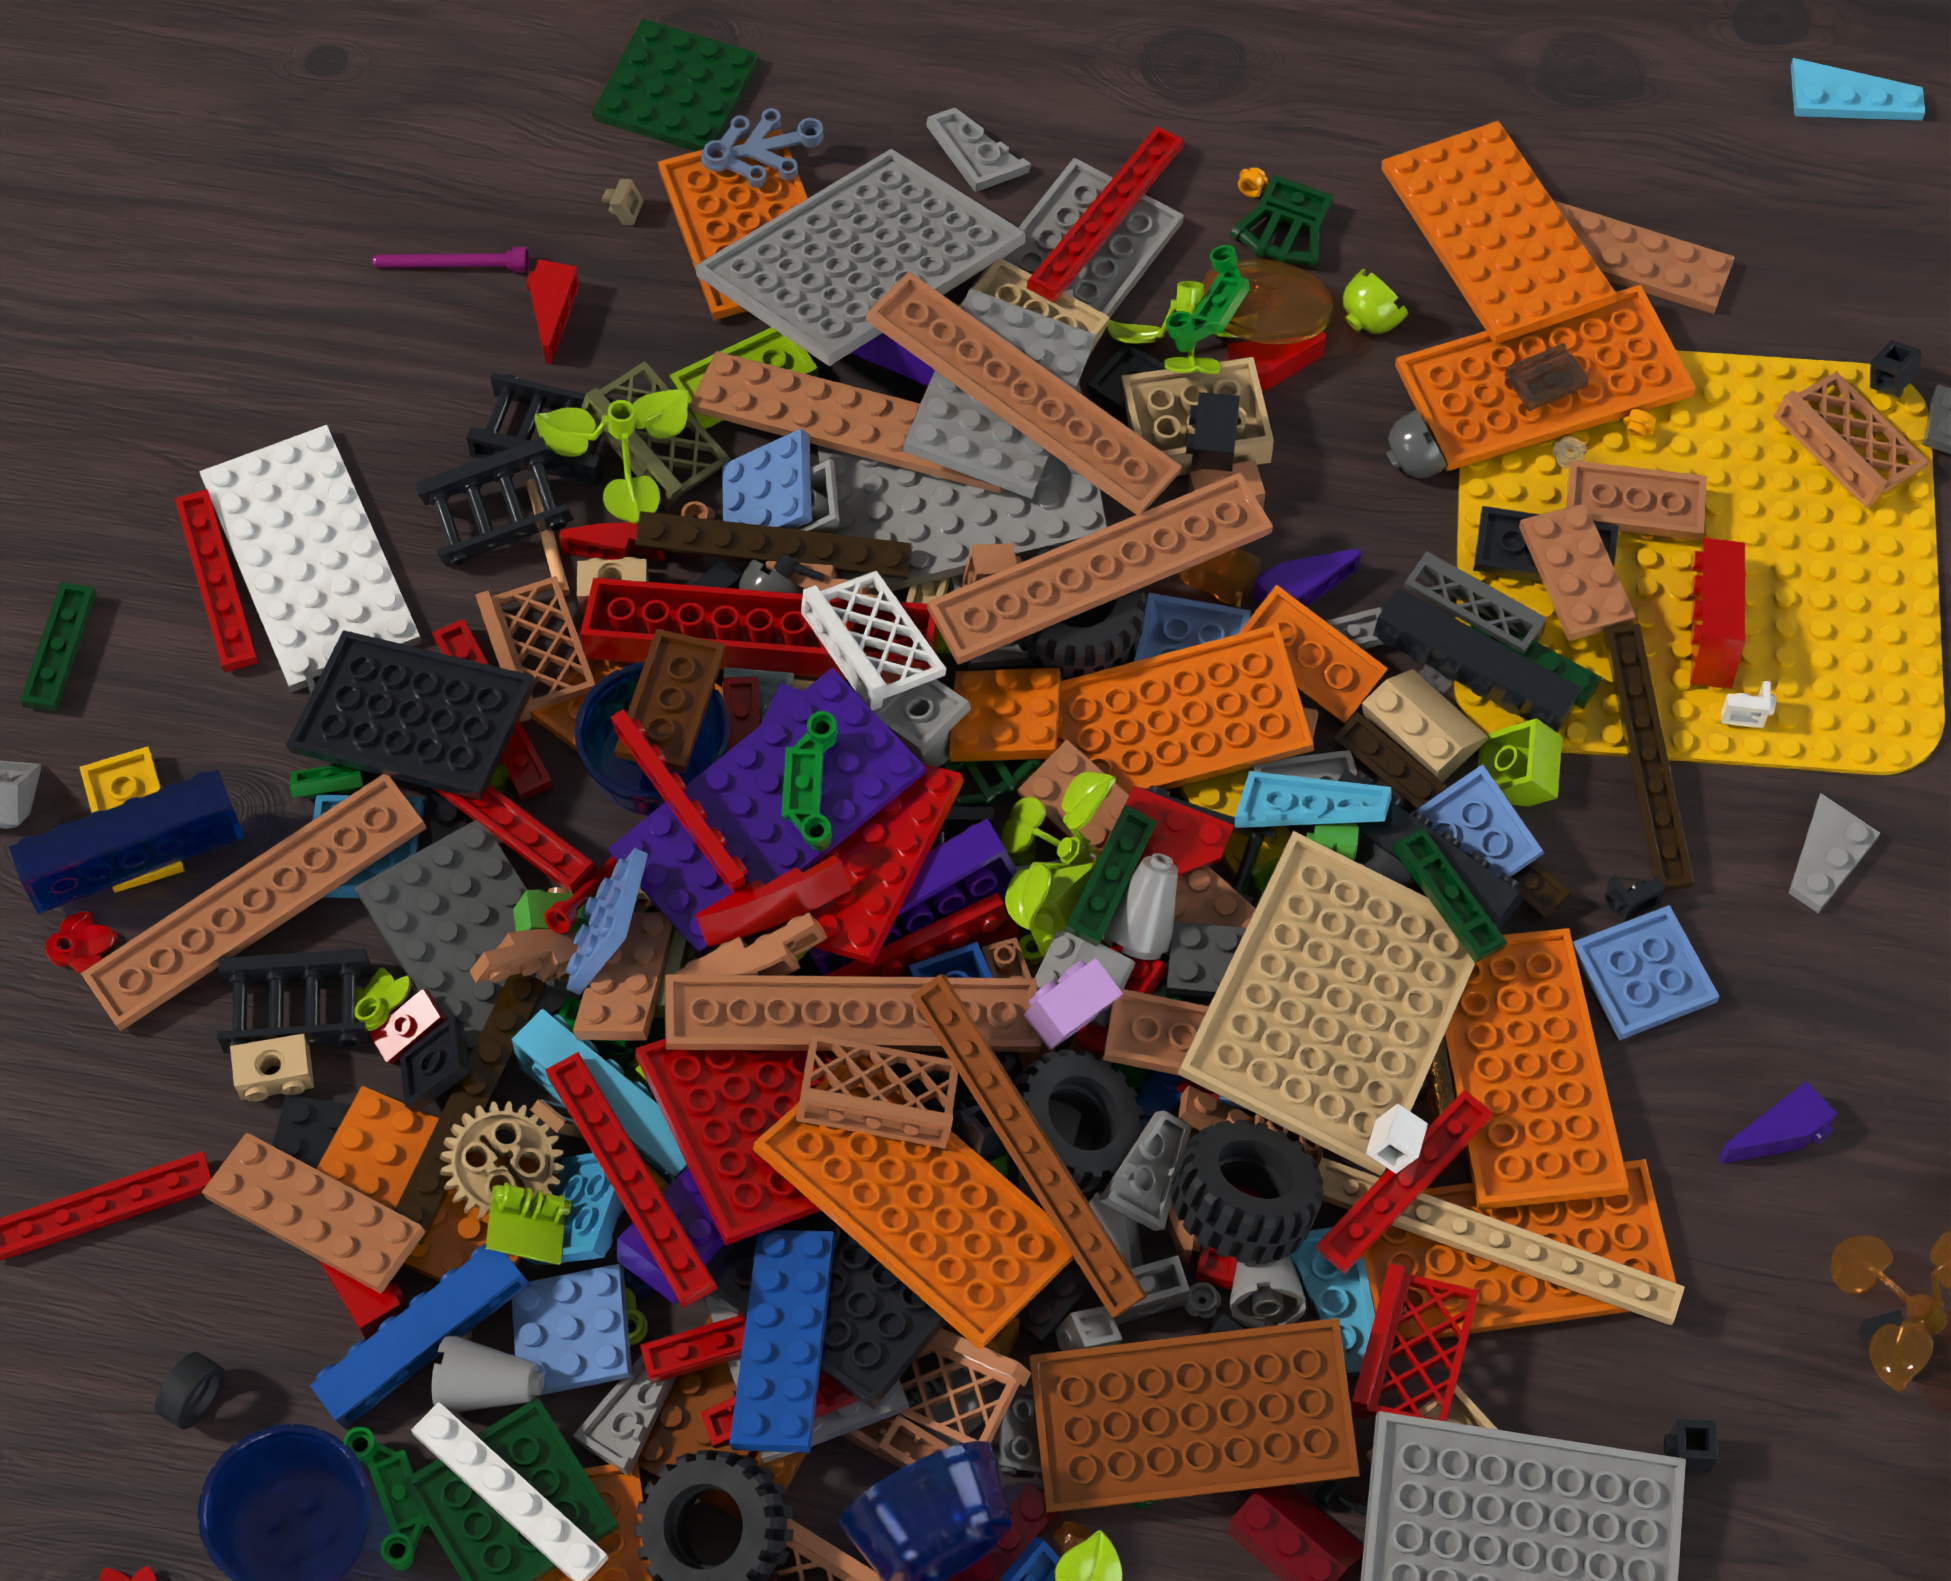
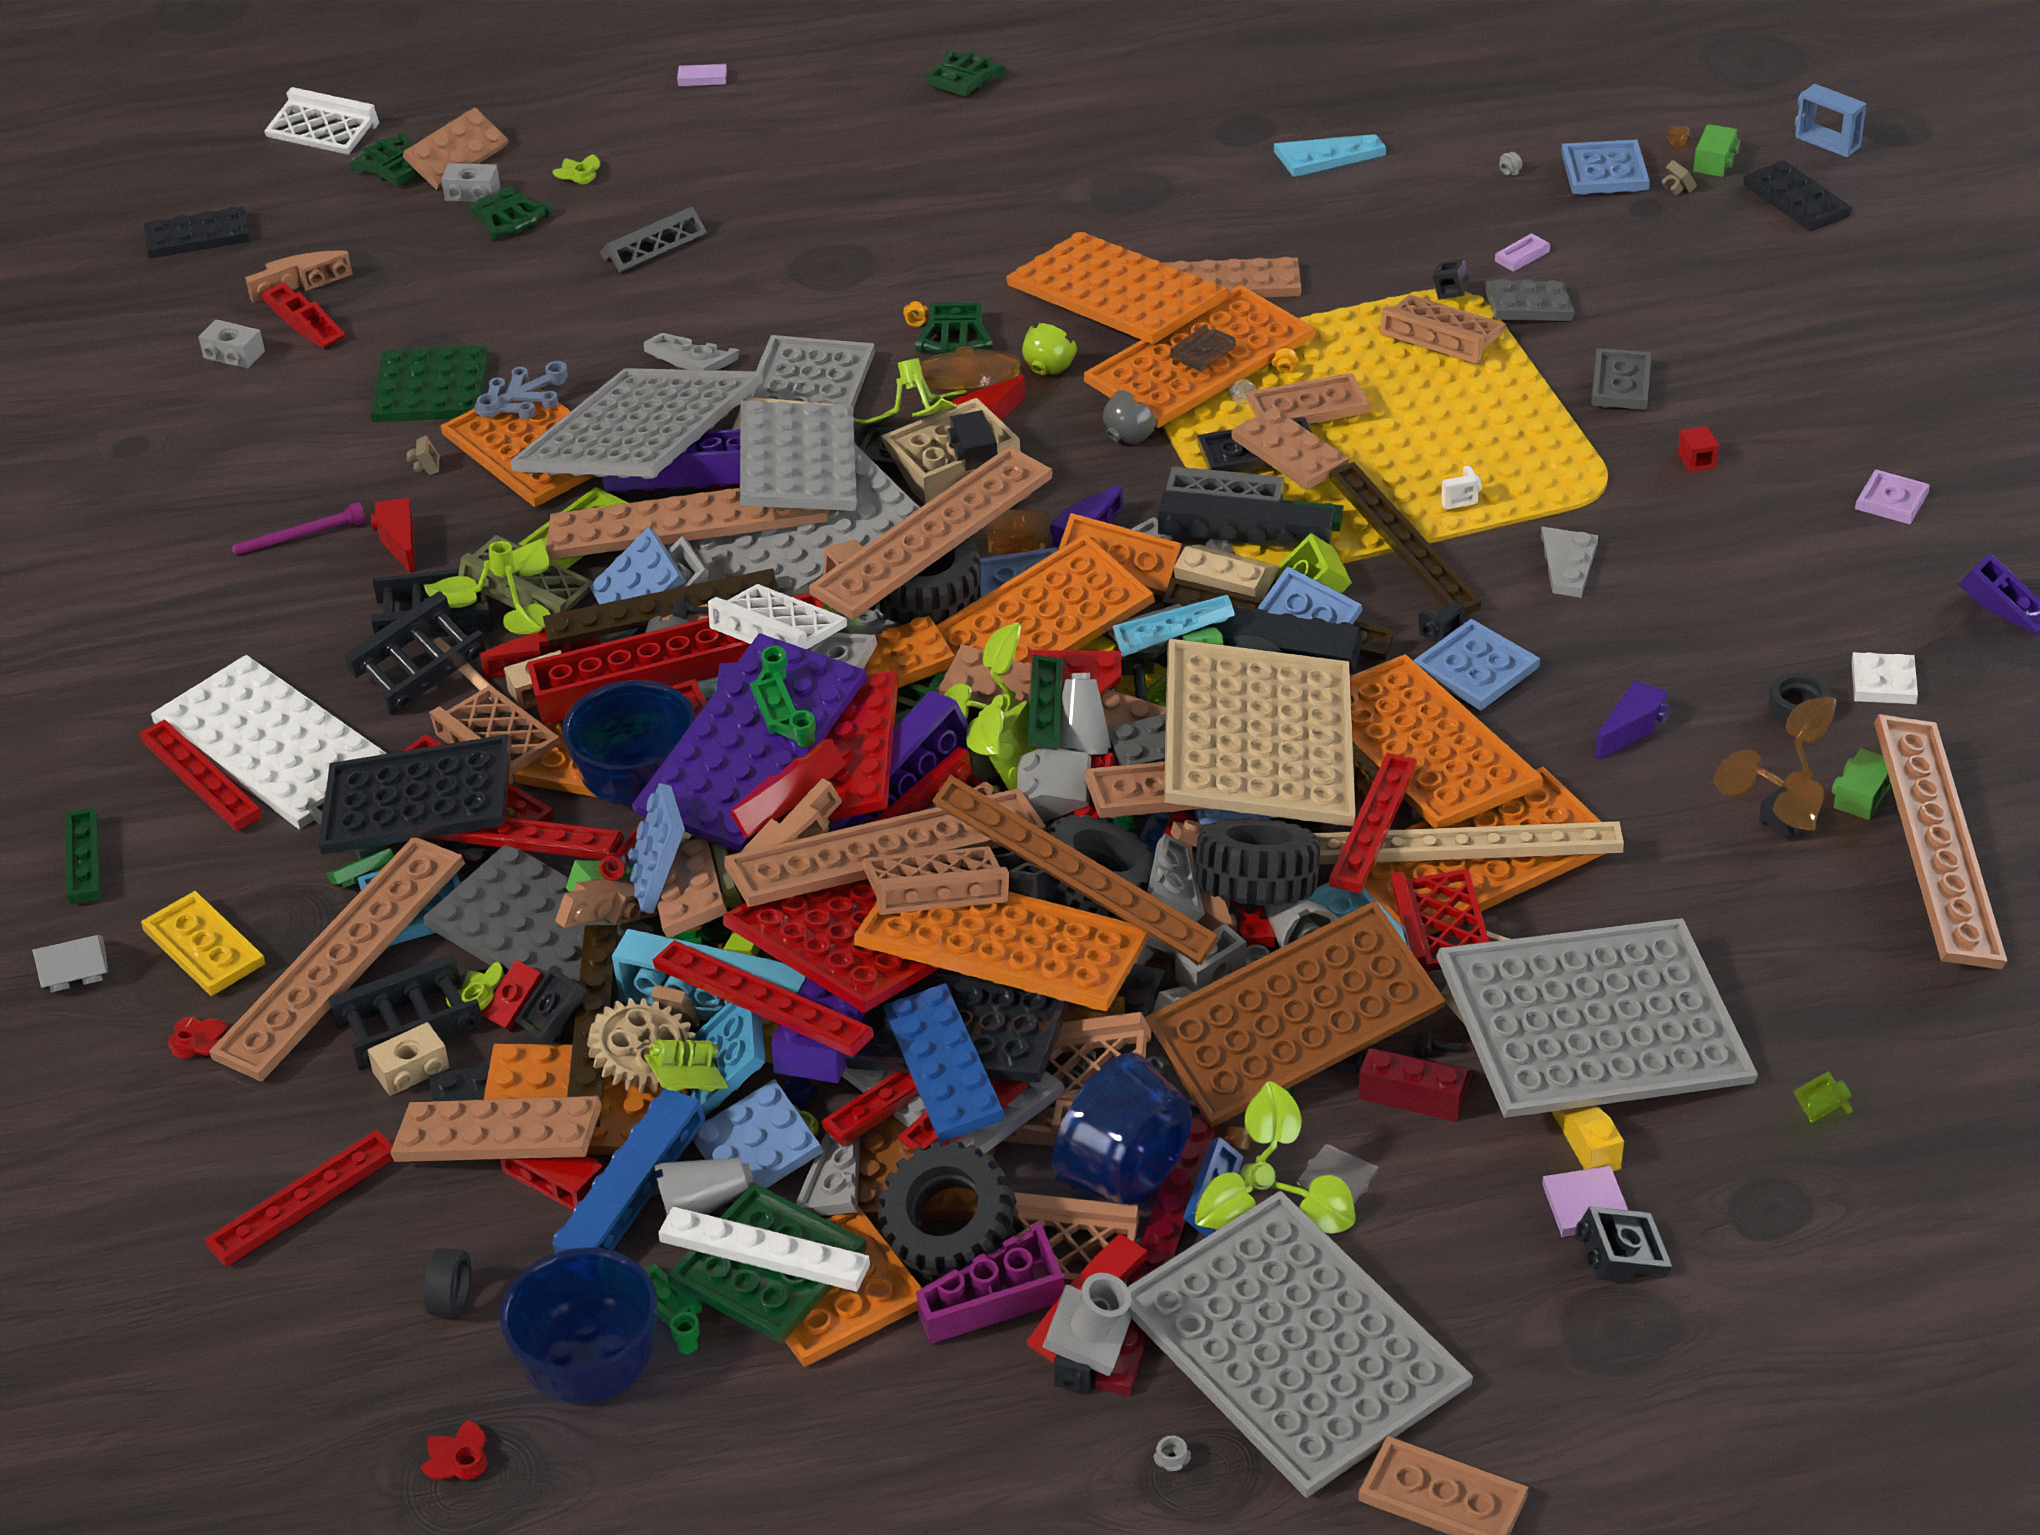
camera: 20 degrees left, 20 degrees down
(126, 841) = (212, 941): clear blue brick -> none
(672, 790) = (679, 746): red plate -> none
(674, 694) = (636, 698): reddish brown plate -> none
(1024, 393) = (818, 442): nougat plate -> none
(1077, 1000) = (1059, 778): lavender brick -> none
(1104, 214) = (815, 352): red tile -> none
(1215, 307) = (934, 368): green plate -> none
(1396, 1138) = (1355, 785): white brick -> none
(1449, 895) = (1308, 644): dark green plate -> none
(1694, 1442) = (1687, 906): black brick -> none
(1717, 612) = (1409, 443): red wedge -> none

